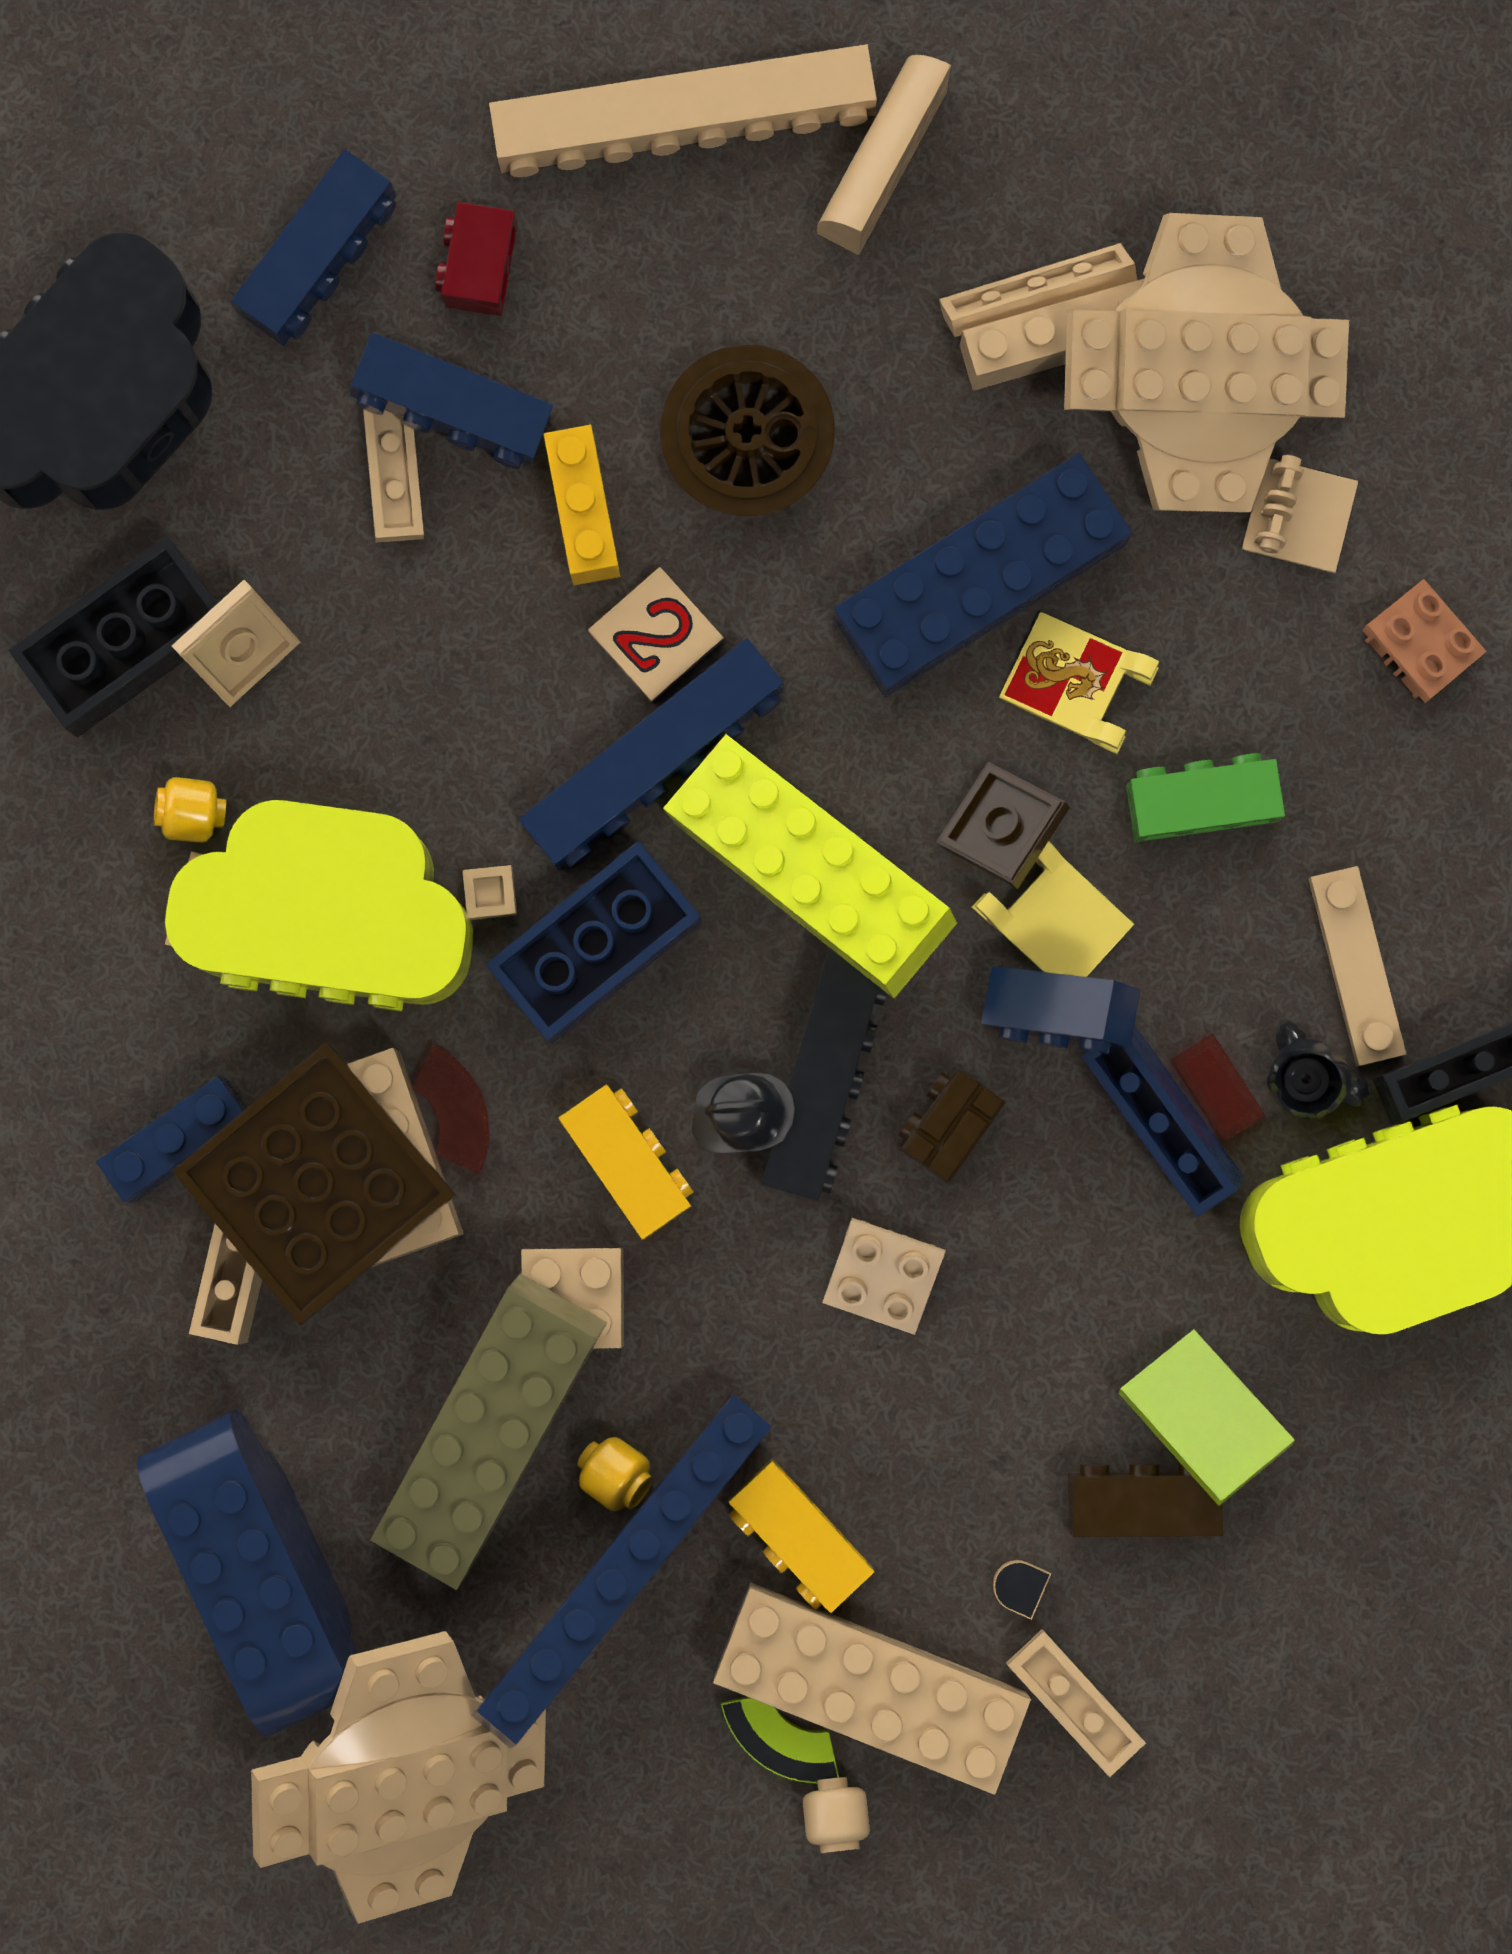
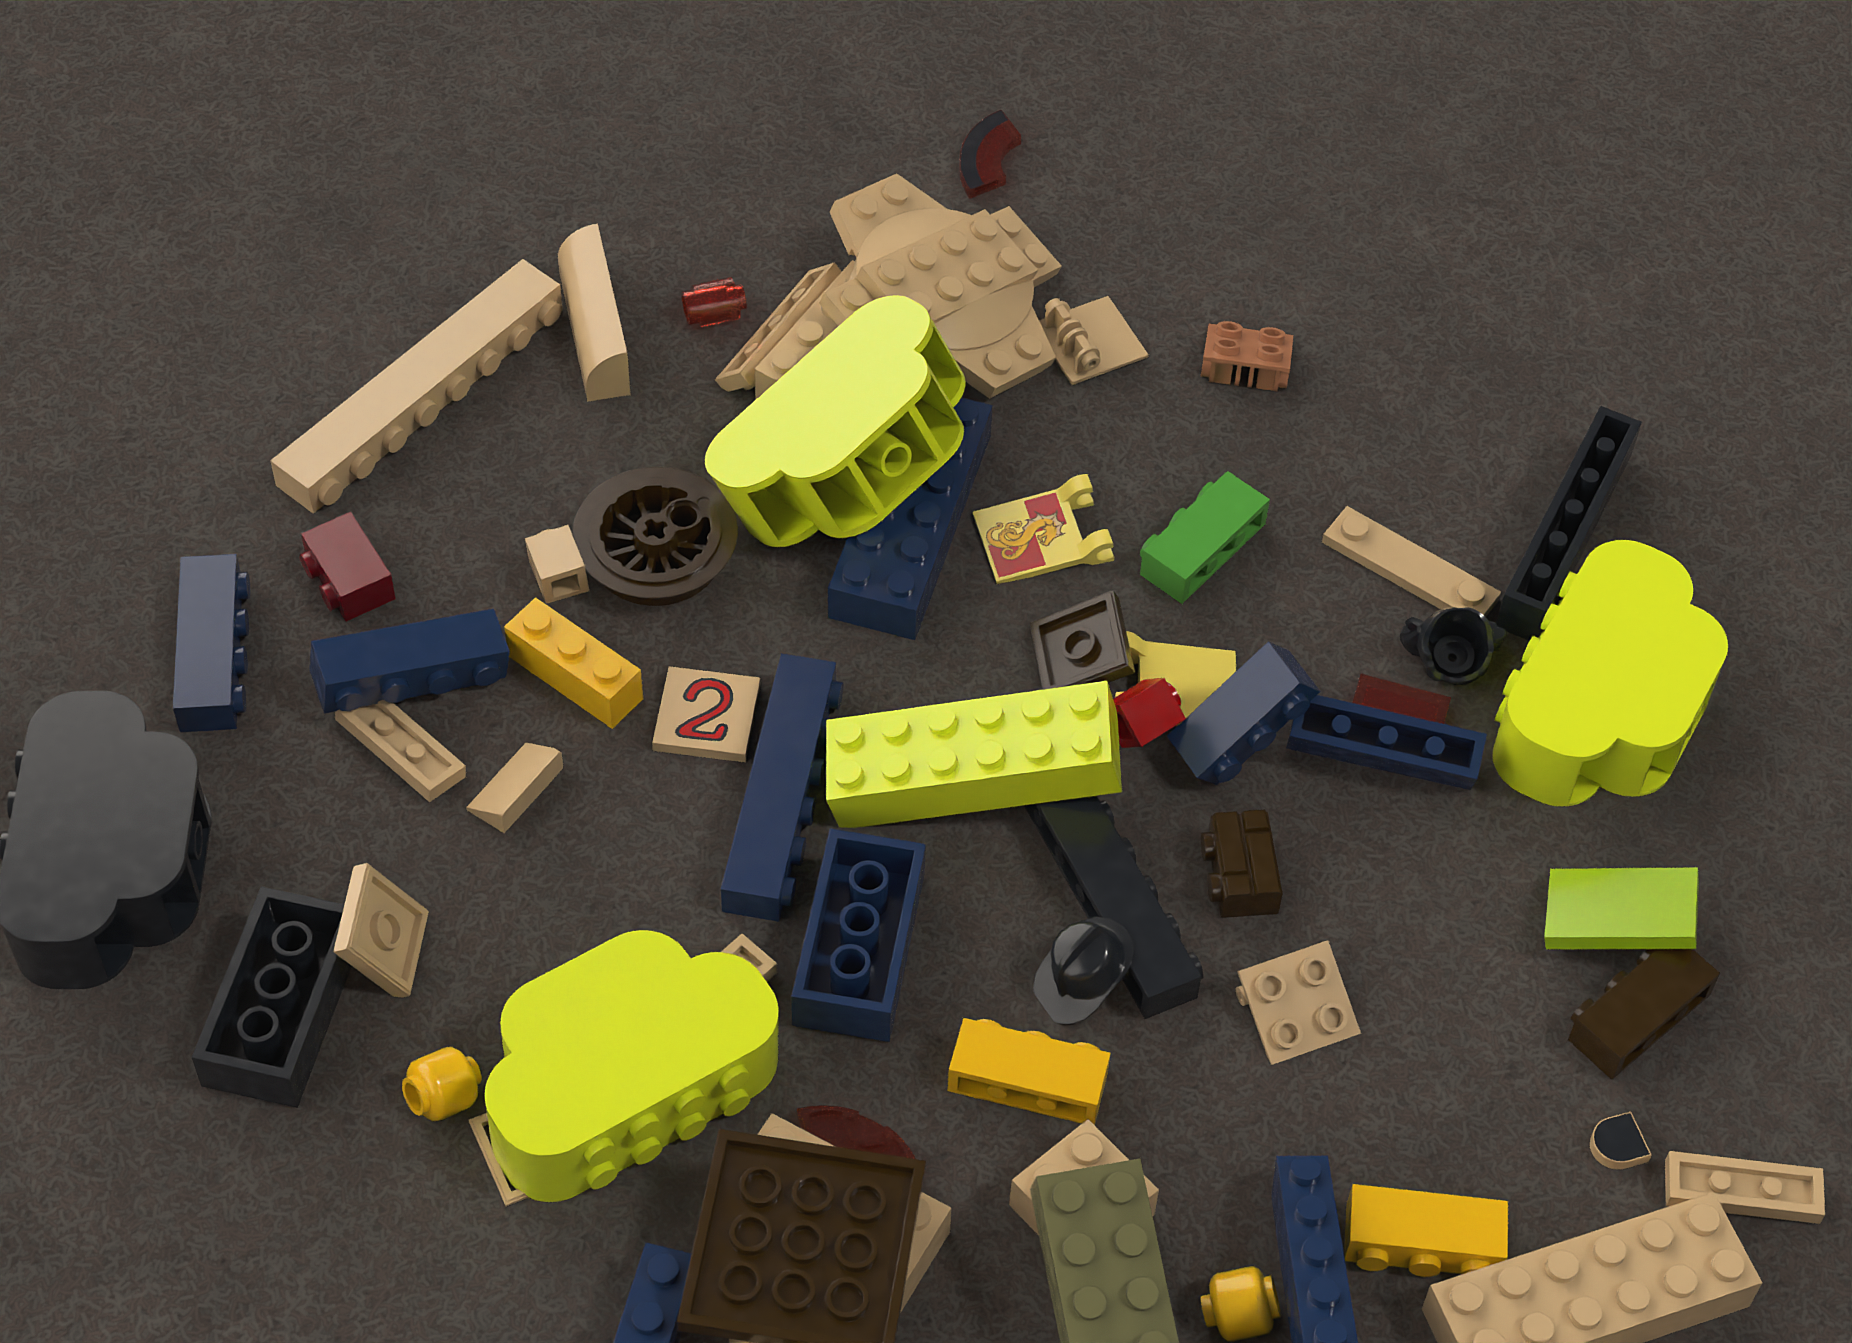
camera: 45 degrees left, 30 degrees down
(453, 580) = (516, 785): none -> tan slope
(646, 390) = (557, 564): none -> tan brick
(972, 469) = (844, 429): none -> neon yellow brick
(988, 934) = (1147, 712): none -> red brick
(1003, 216) = (713, 302): none -> clear red brick
(1391, 231) = (983, 153): none -> clear red tile

